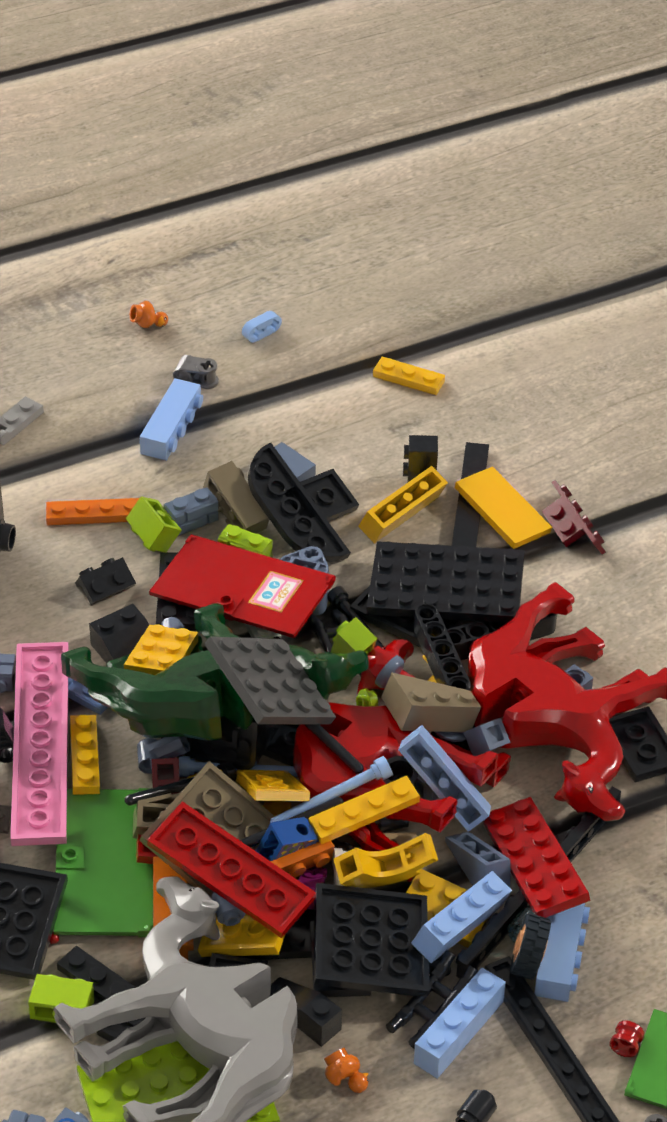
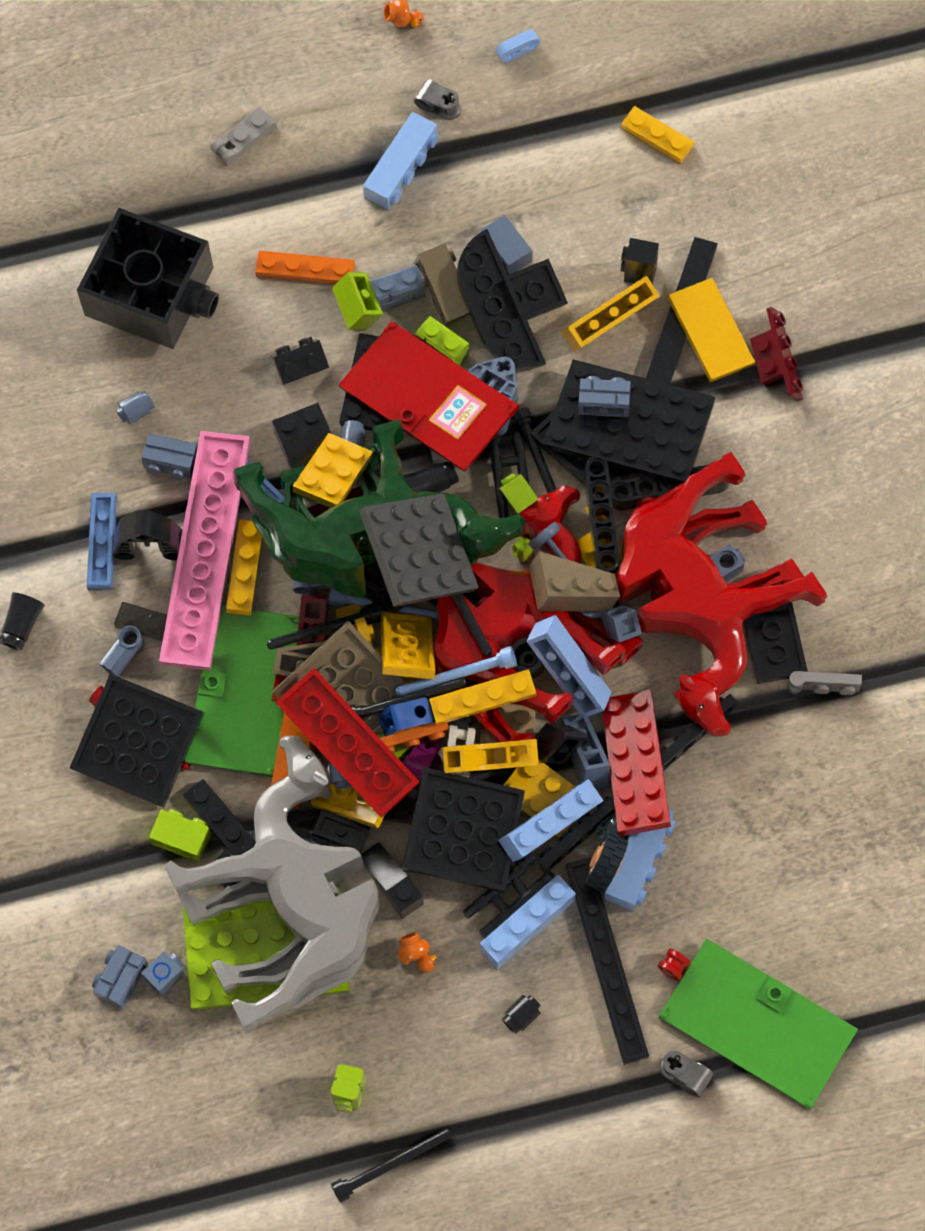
camera: 15 degrees right, 25 degrees up
(418, 558) = (604, 397): none -> sand blue brick
(453, 851) = (558, 742): none -> black slope

